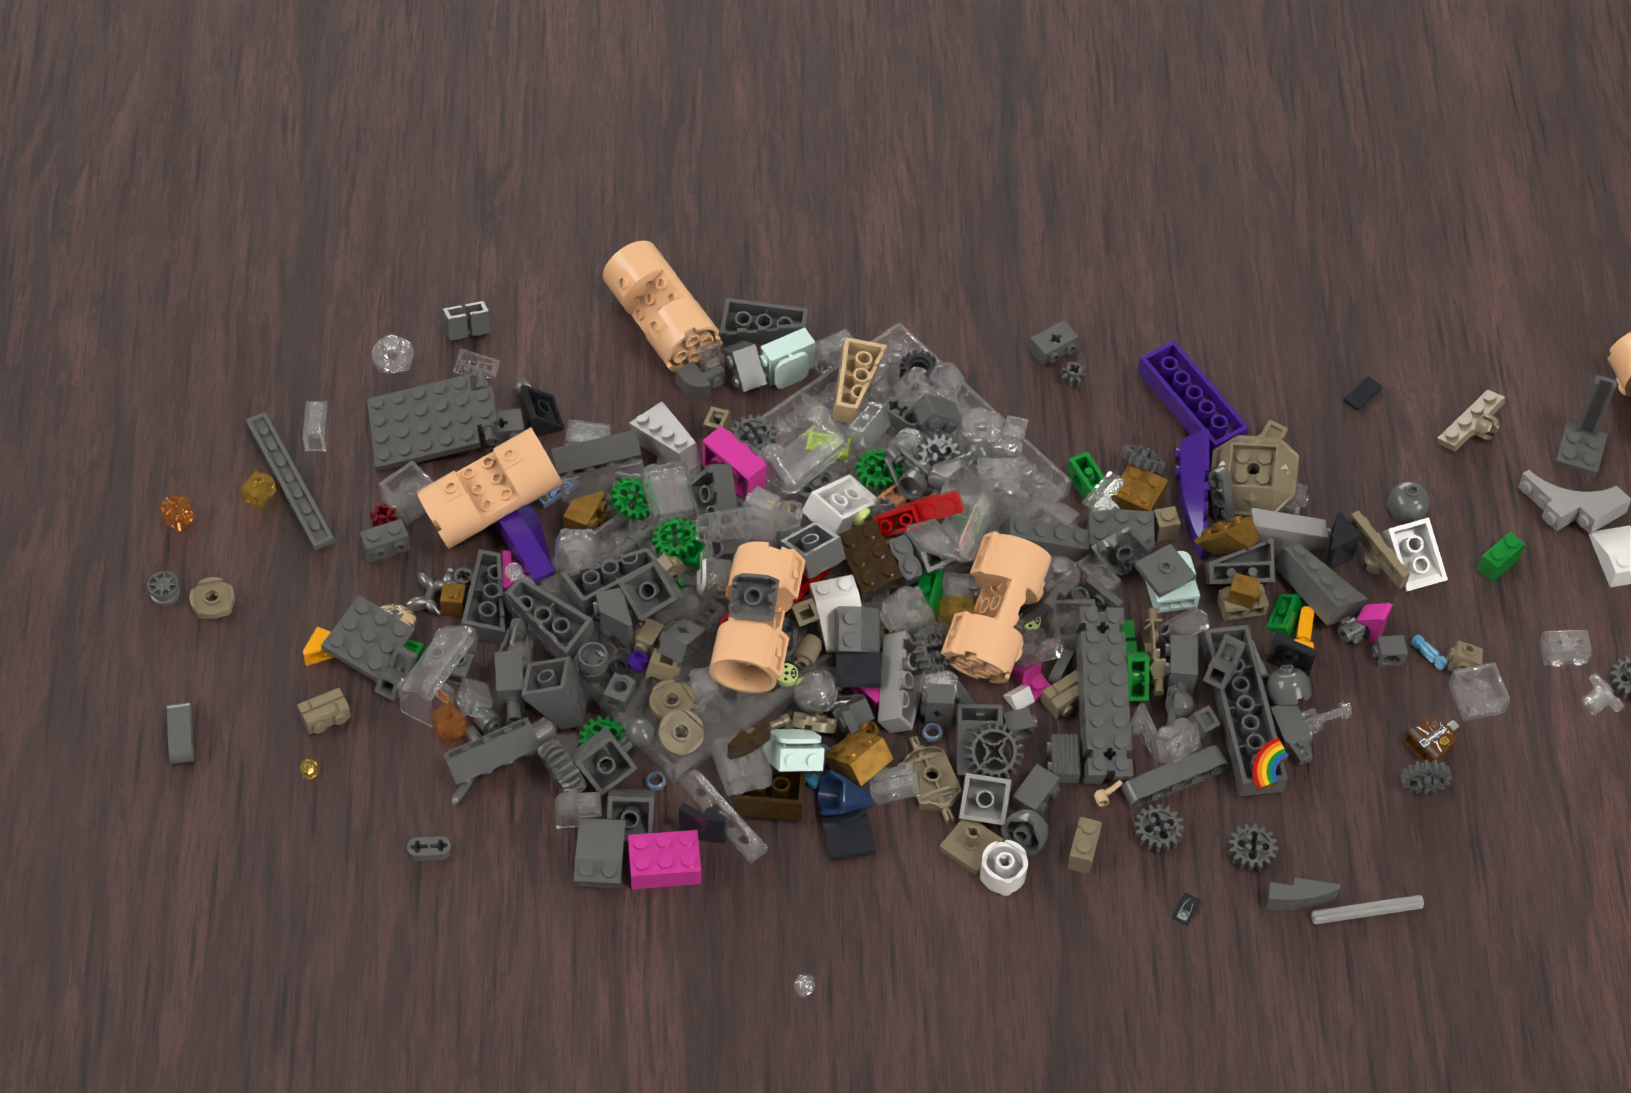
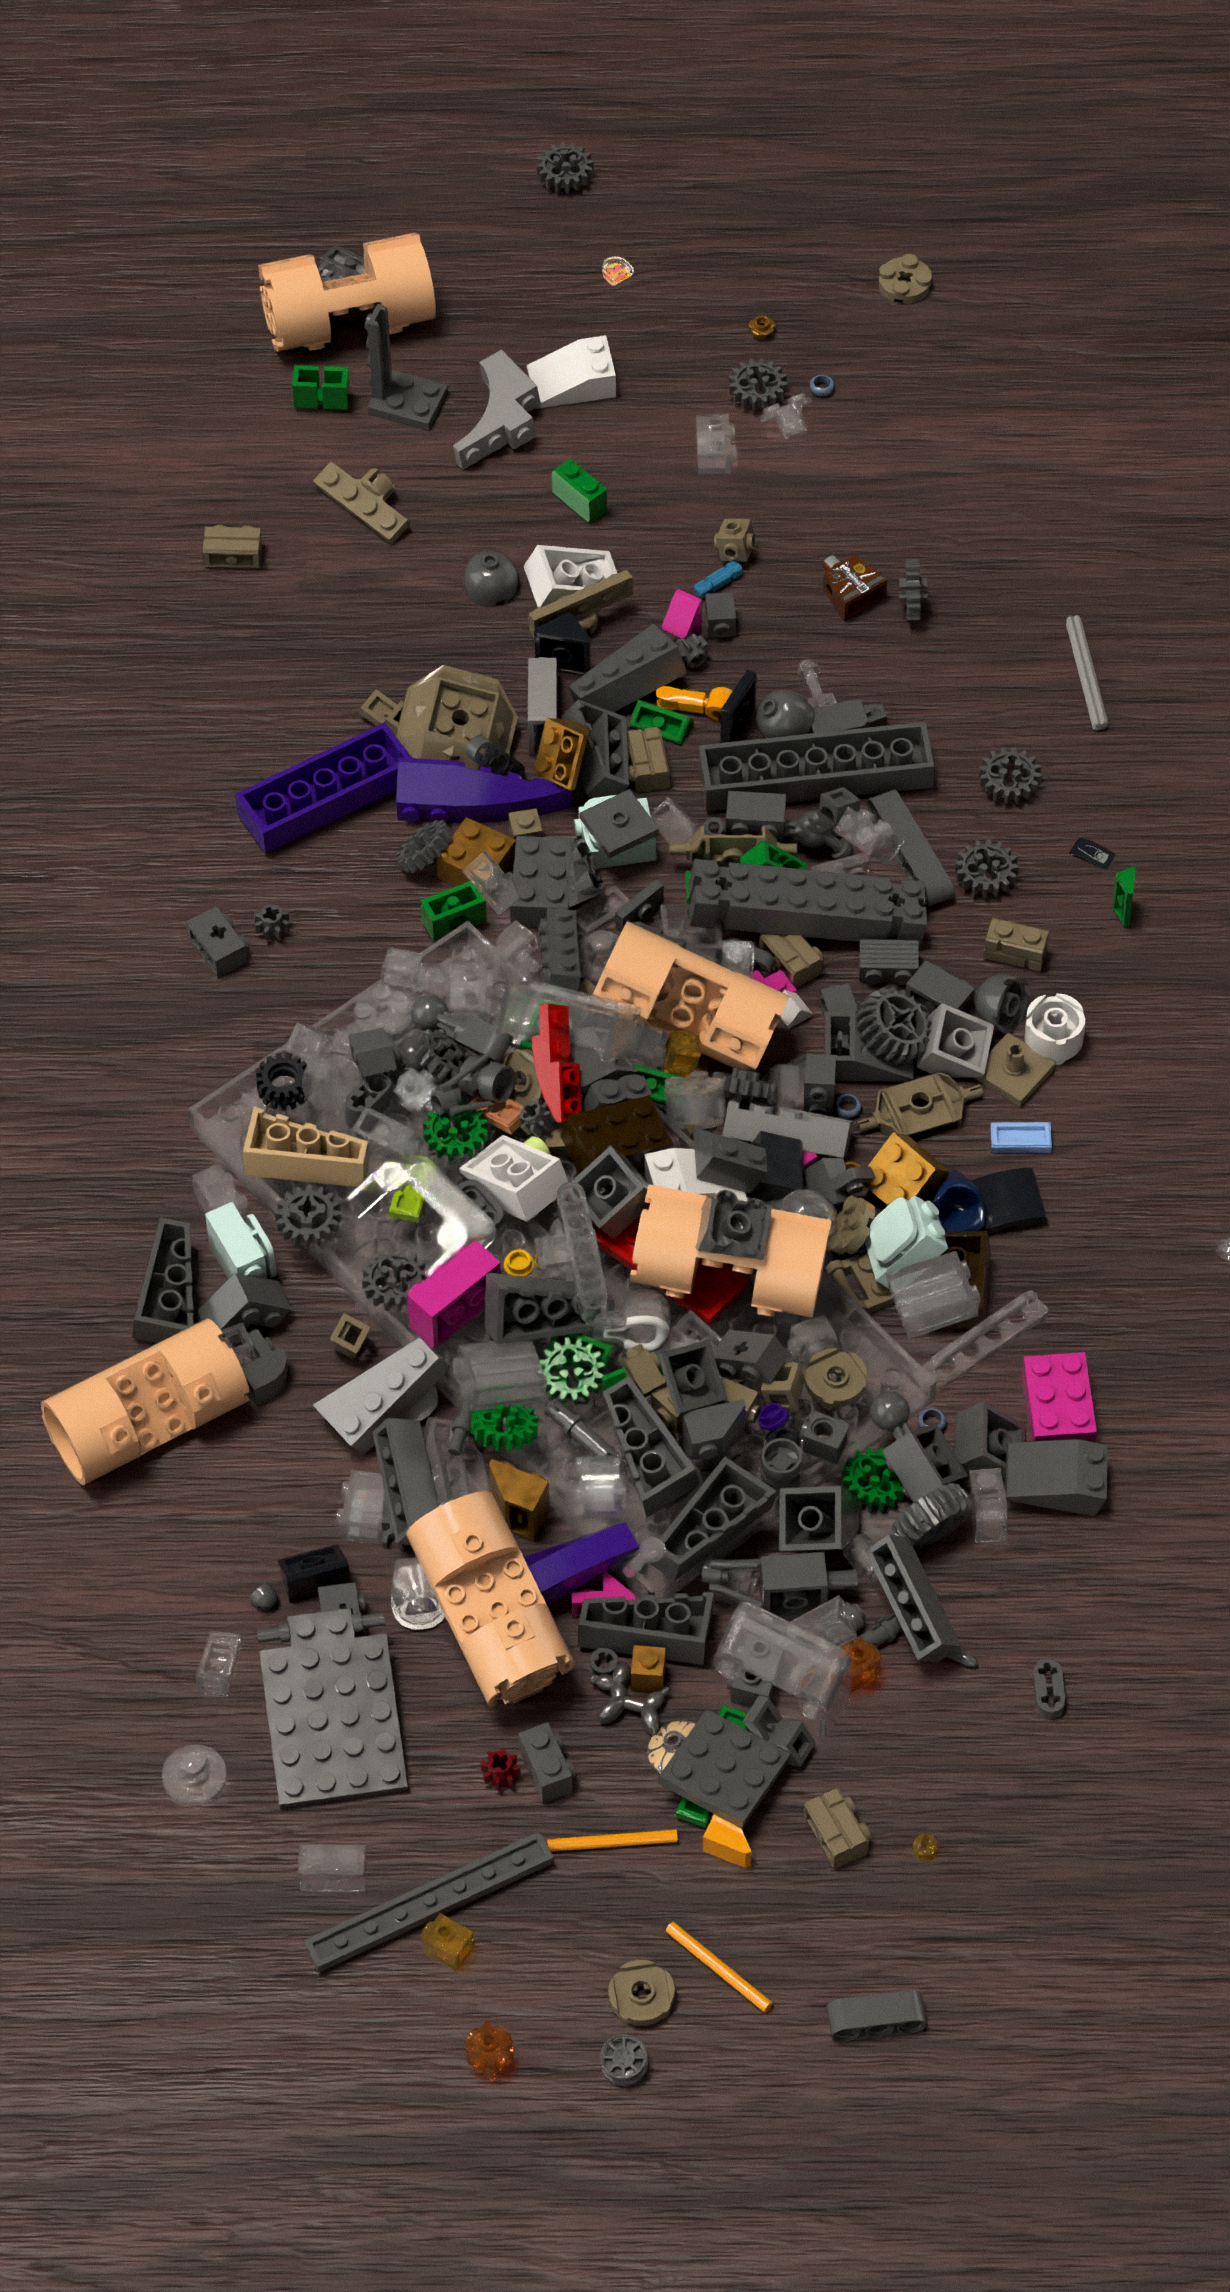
camera: 85 degrees left, 0 degrees up
(229, 644) = (719, 1967): none -> light orange bar
(328, 582) = (612, 1840): none -> light orange bar
(400, 491) = (463, 1731): clear brick -> none
(460, 325) = (145, 1661): dark grey piece -> none
(694, 732) = (885, 1374): dark tan plate -> none
(710, 824) = (1010, 1352): black slope -> none
(747, 743) = (918, 1273): dark brown slope -> none
(762, 505) = (576, 1220): clear brick -> none
(804, 381) = (323, 1216): none -> dark grey gear
(895, 783) = (938, 1135): clear brick -> none
(908, 847) = (1021, 1137): none -> light blue tile
(1101, 796) = (940, 927): tan hand -> none
(1131, 919) = (1124, 895): none -> green slope
(1225, 662) = (771, 768): dark grey brick -> none
(1244, 591) = (648, 744): pearl gold brick -> none
(1266, 764) = (911, 738): tile -> none
(1300, 895) = (1074, 734): dark grey slope -> none
(1362, 393) = (309, 613): black piece -> none
(1415, 341) = (232, 547): none -> dark tan brick
(1479, 691) = (784, 530): clear brick -> none
(1575, 387) = (309, 394): none -> green piece

